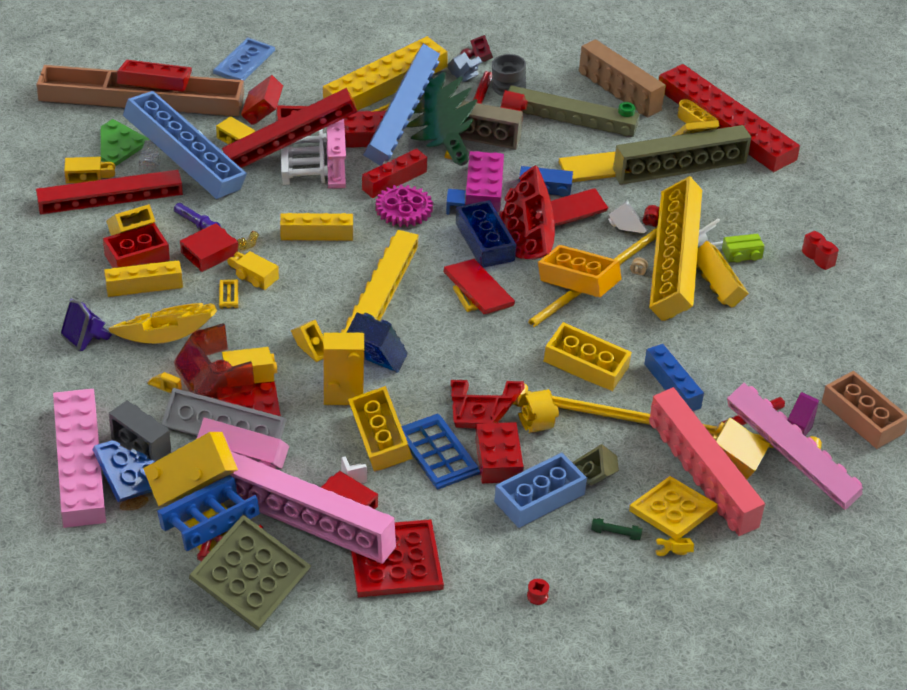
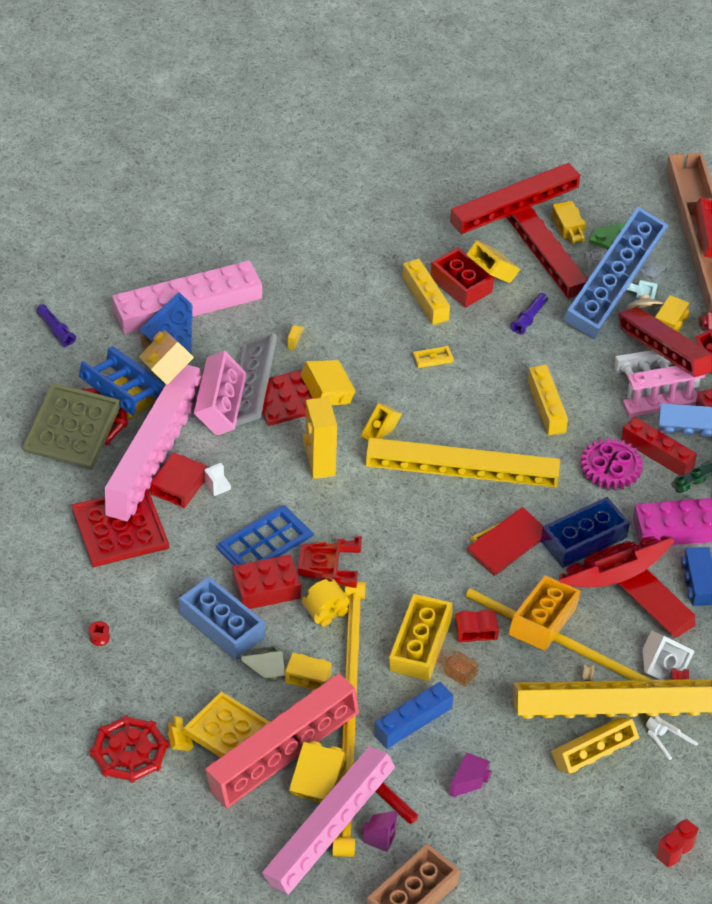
camera: 80 degrees right, 5 degrees up
(51, 189) = (514, 198): none -> red brick
(82, 325) = (348, 263): dark purple piece -> none
(83, 574) = (59, 329): none -> dark purple pin
(139, 431) = (216, 326): dark grey brick -> none
(165, 325) = (367, 317): yellow brick -> none
(209, 247) = (489, 328): red brick -> none
(213, 379) = (291, 360): clear red windscreen -> none
(222, 140) = (645, 302): none -> tan dish
(250, 242) = (511, 358): clear yellow arm -> none
(254, 269) = (468, 366): yellow brick -> none
(380, 341) = (364, 456): clear blue brick -> none
(380, 429) = (270, 487): yellow brick -> none
(455, 198) = (630, 498): blue panel -> none
(576, 316) = (476, 626): none -> red brick
(599, 525) = (192, 700): dark green bar -> none
(615, 437) = (307, 671): none -> yellow brick
(625, 338) = (461, 668): none -> clear orange brick
(688, 578) = (128, 759): none -> red plate
(741, 356) = (470, 775): none -> magenta slope
(743, 248) = (655, 768): lime brick -> none

